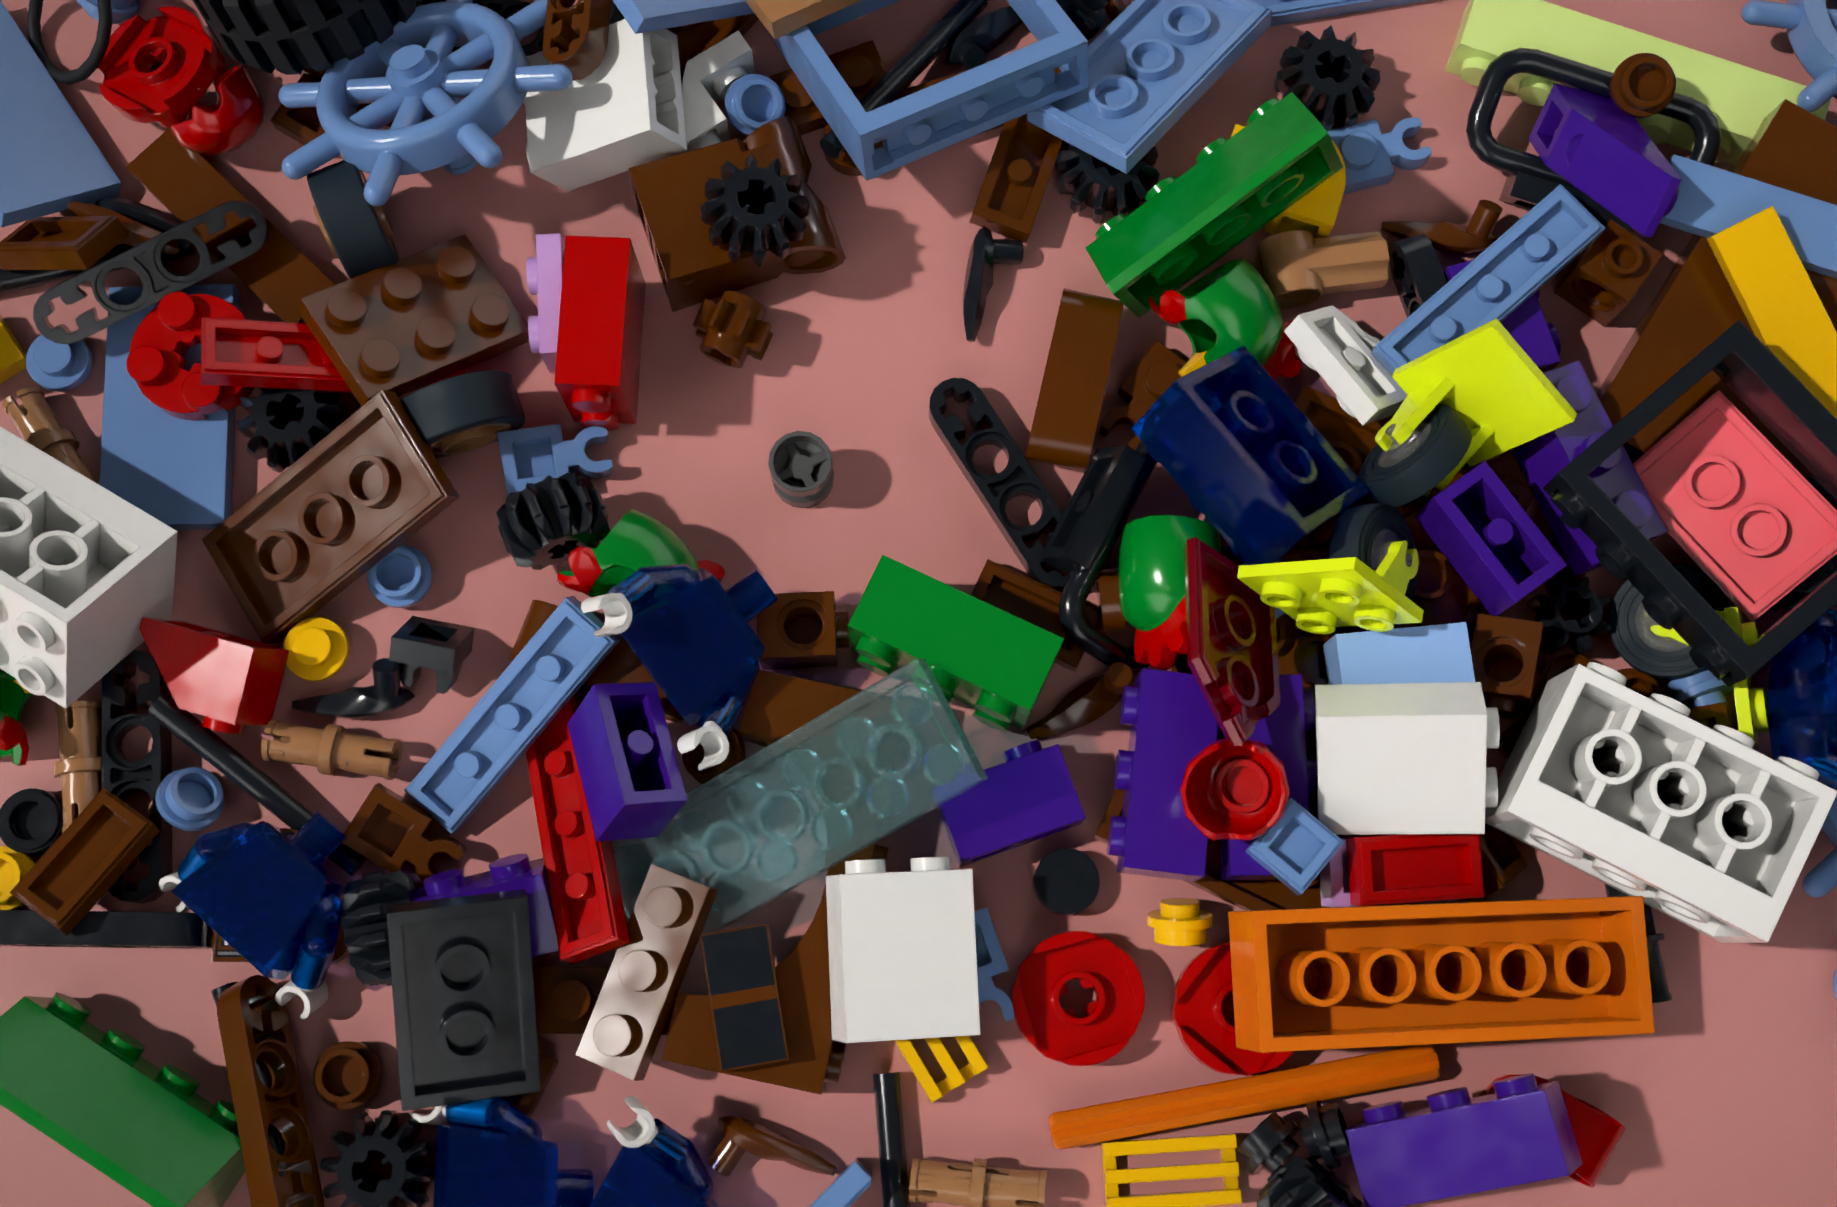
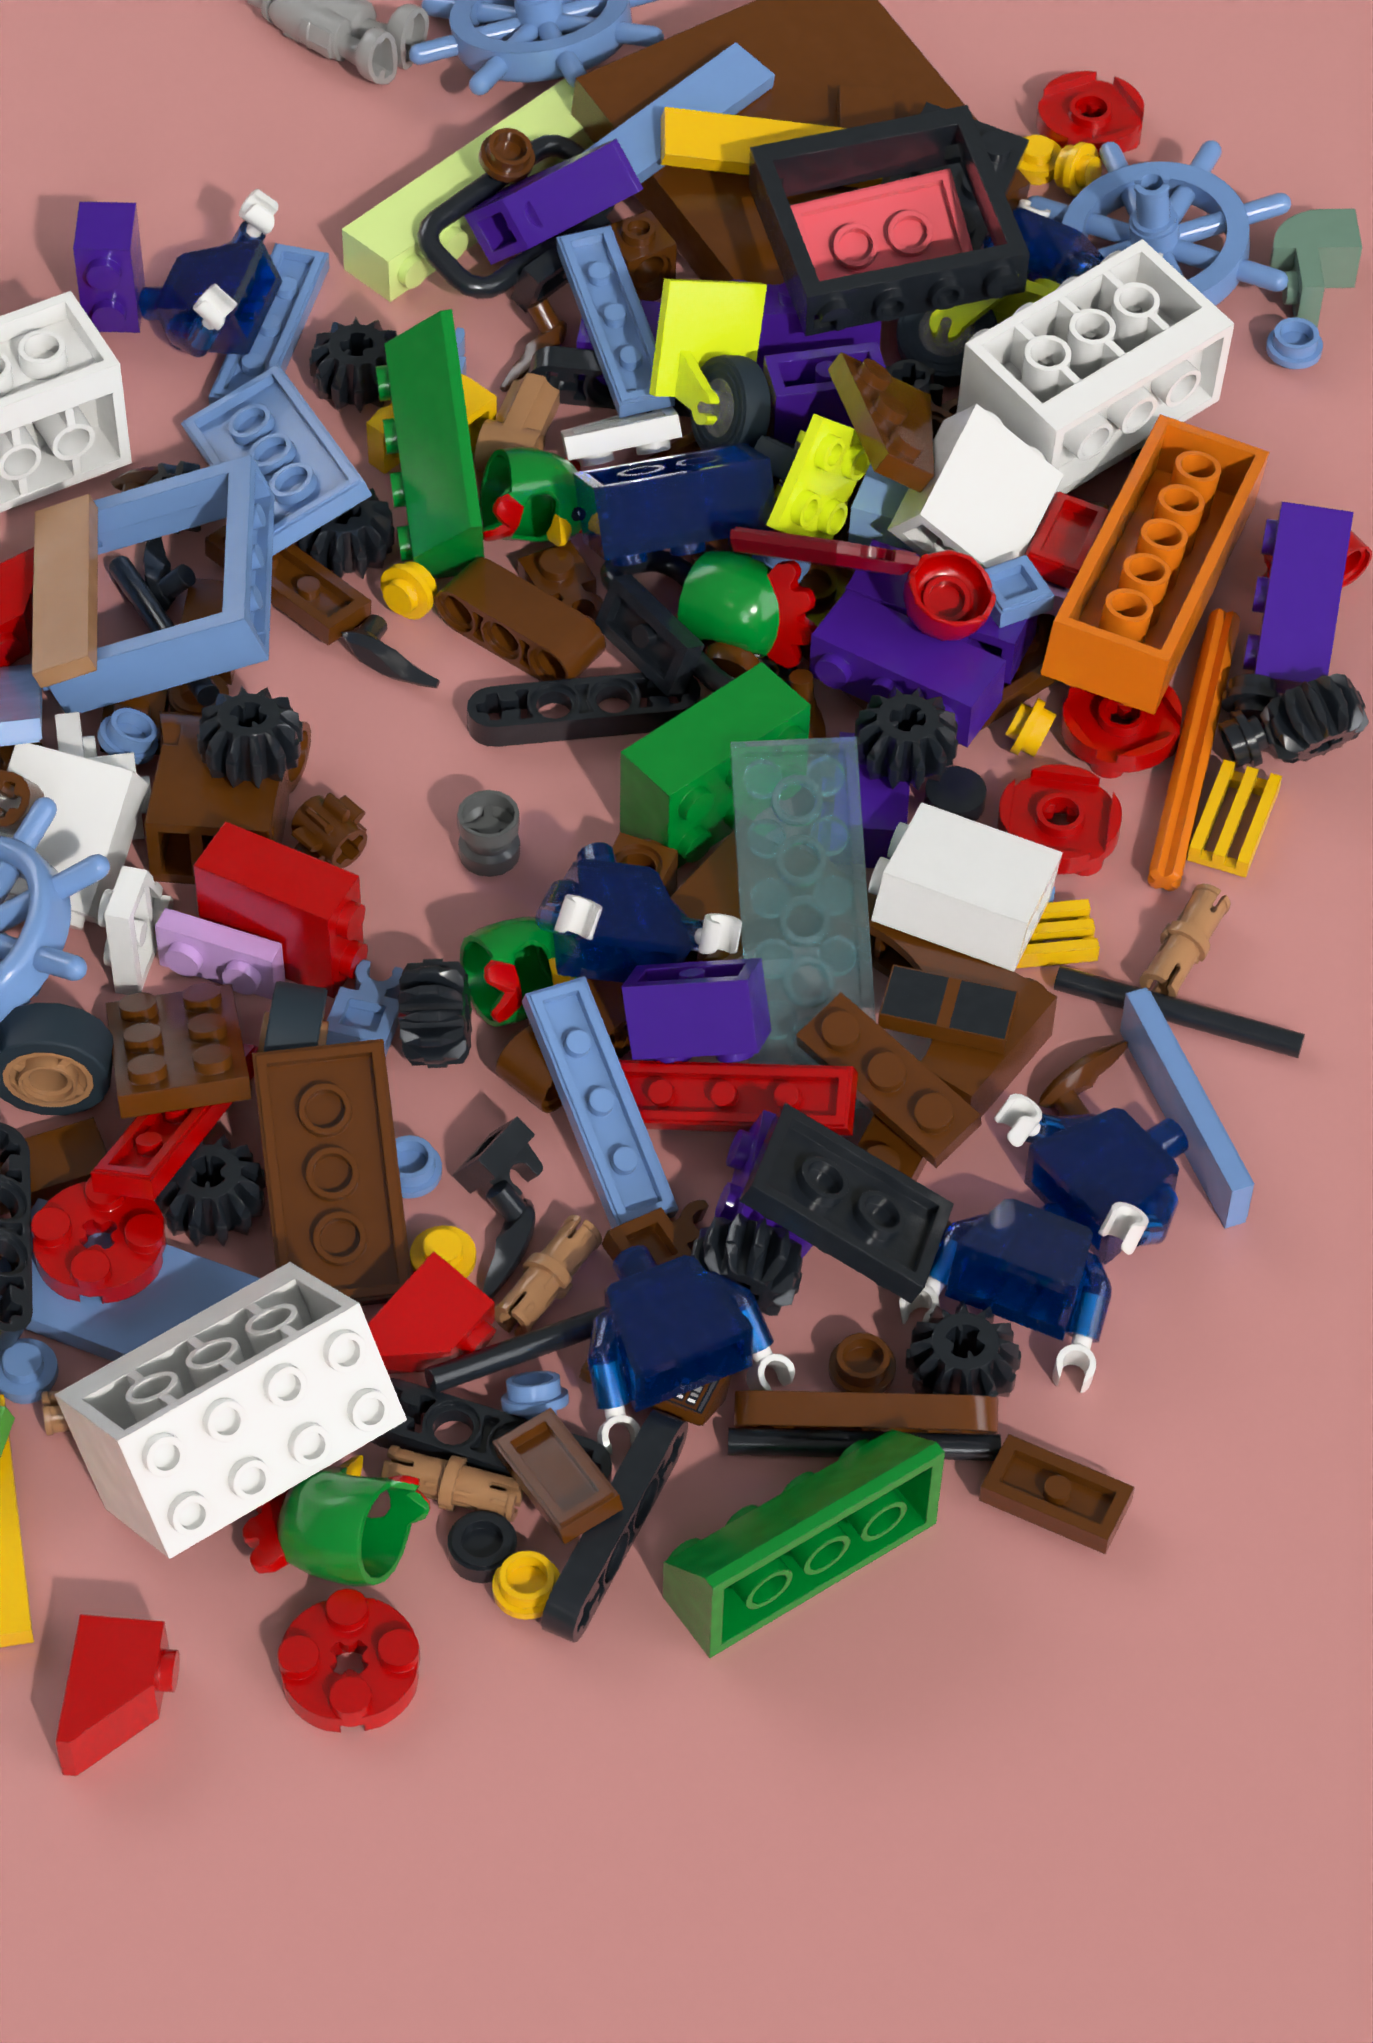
camera: 65 degrees left, 25 degrees down
(525, 206) = (130, 922): none -> white wing
(1064, 261) = (408, 589): none -> yellow plate
(1070, 799) = (906, 738): none -> black gear
(1439, 629) = (889, 420): none -> reddish brown wing

